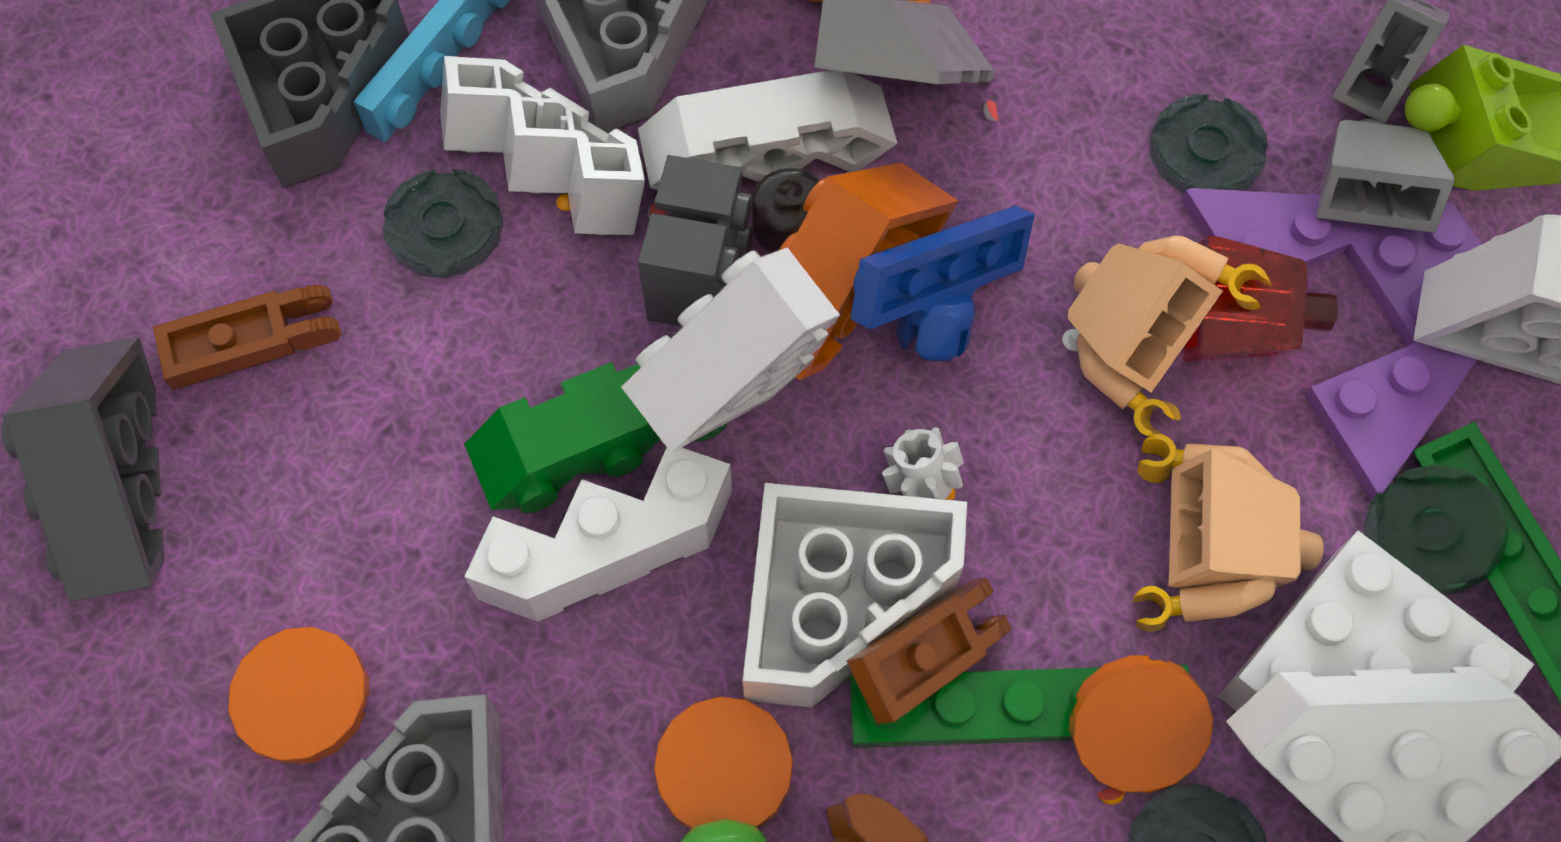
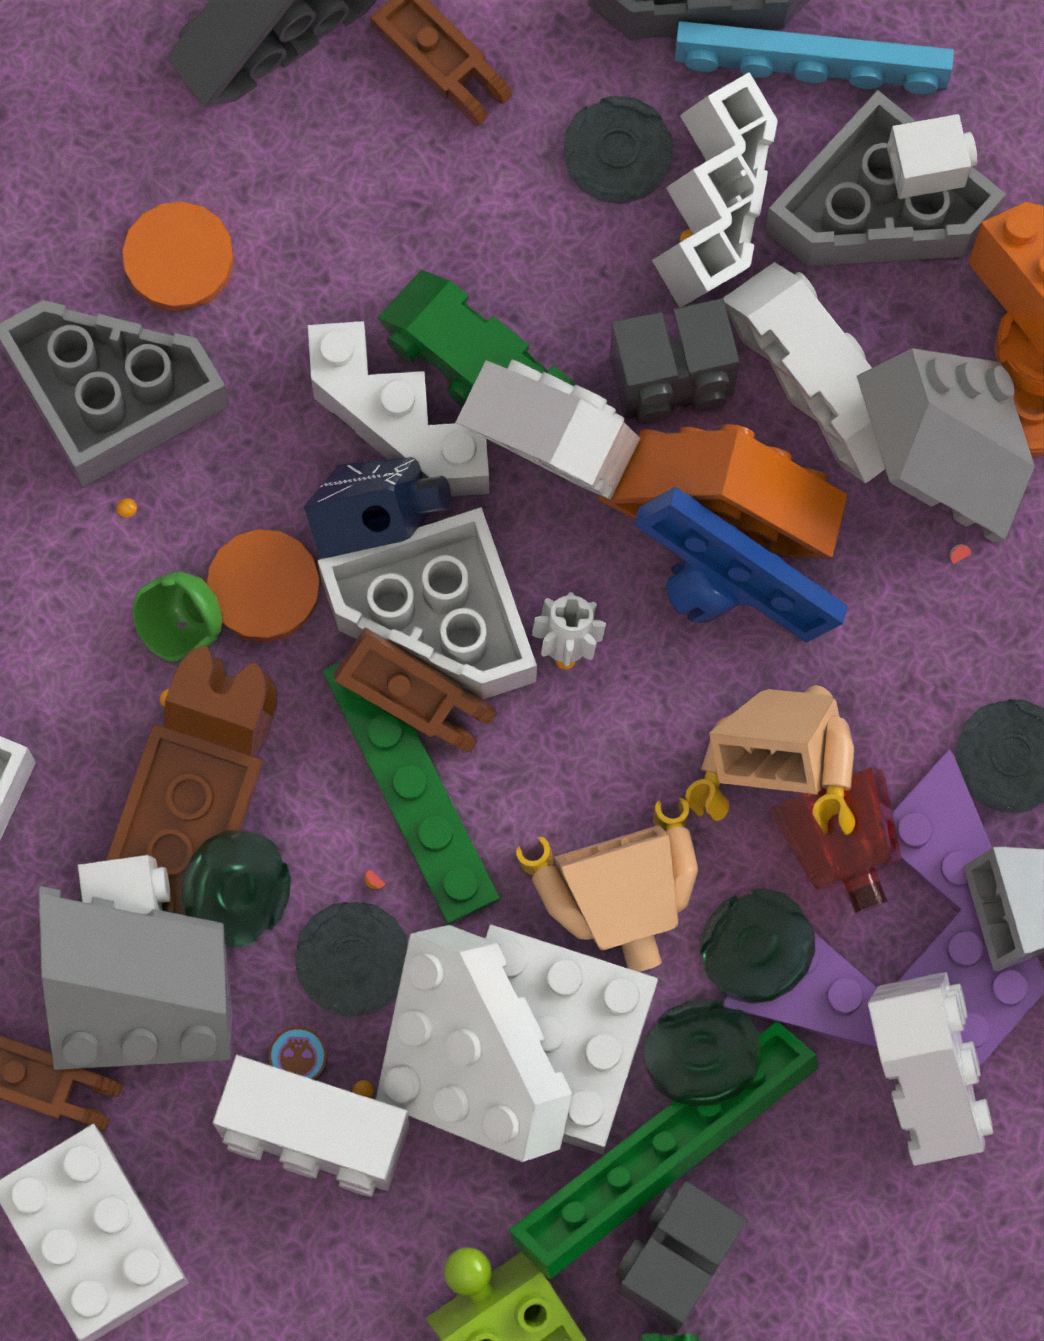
camera: 65 degrees right, 10 degrees up
(707, 592) = (373, 505): none -> dark blue torso
(779, 205) = (757, 404): clear smoke head -> none
(1141, 724) = (426, 871): orange tile -> none
(1334, 431) = (757, 946): none -> clear green tile

